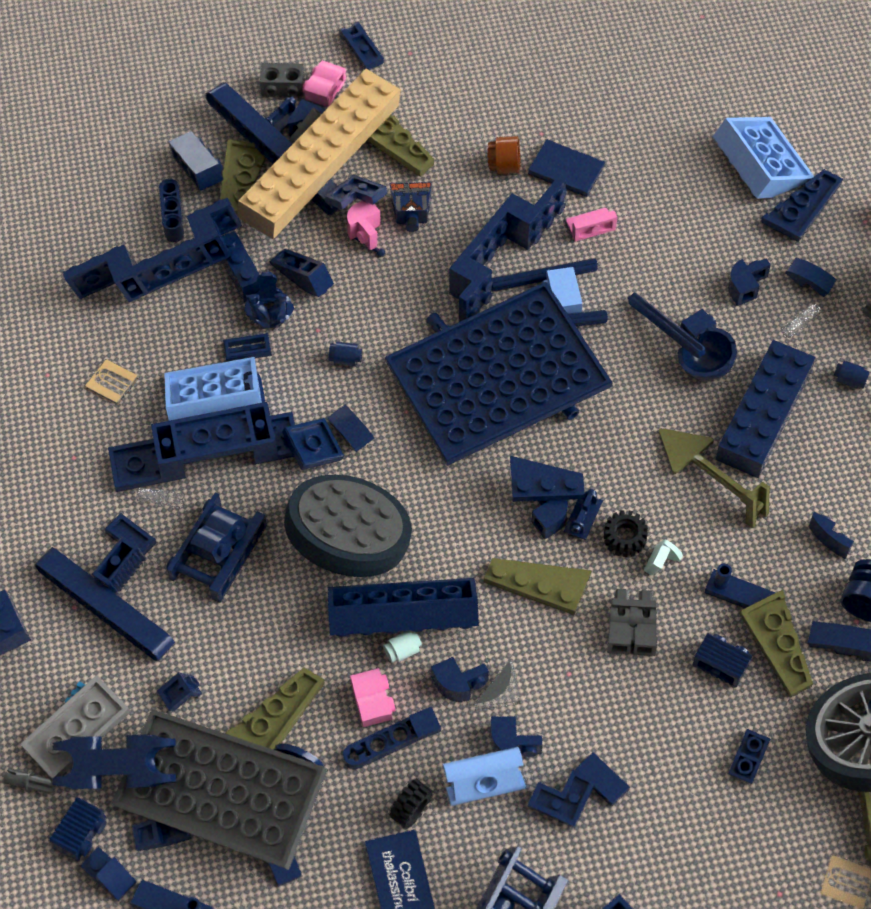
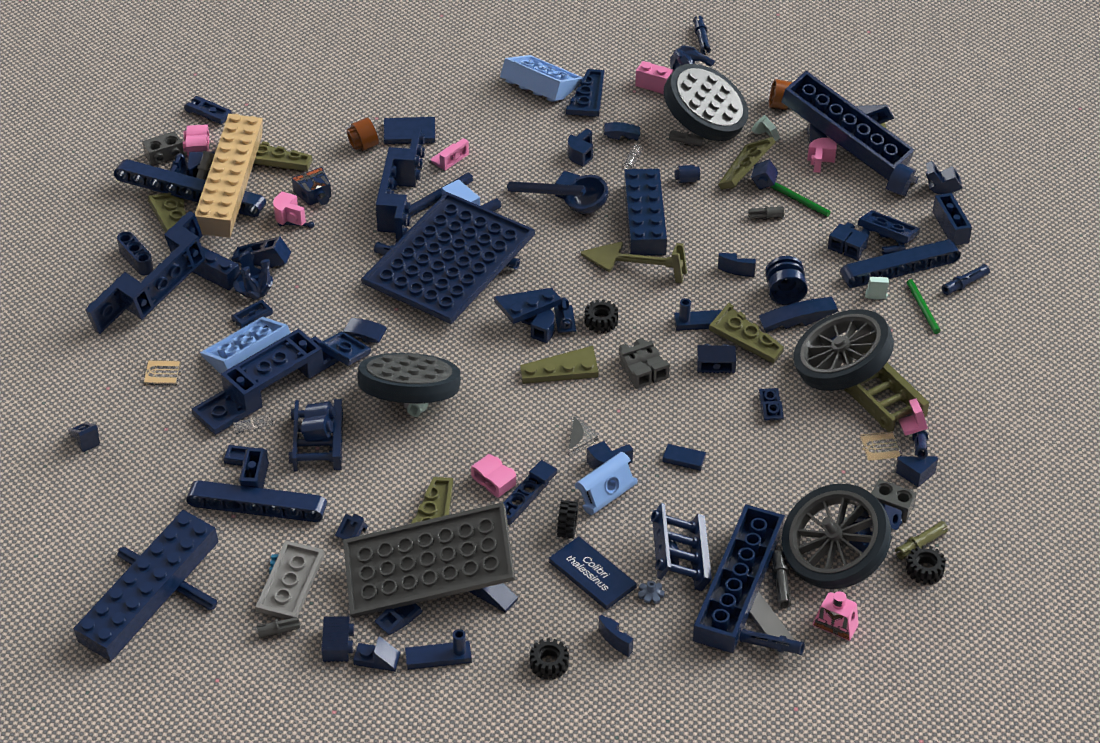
camera: 30 degrees left, 15 degrees down
(134, 761) = (351, 573): dark blue piece -> none
(196, 160) = (133, 215): brick -> none
(345, 353) = (329, 289): dark blue brick -> none
(355, 188) = (269, 187): dark blue plate -> none
(402, 607) = (480, 411): dark blue brick -> none
(402, 646) = (494, 438): light aqua brick -> none
(455, 684) = (545, 443): dark blue brick -> none
(563, 805) = (670, 480): dark blue plate -> none
(660, 552) = (634, 317): light aqua tile -> none

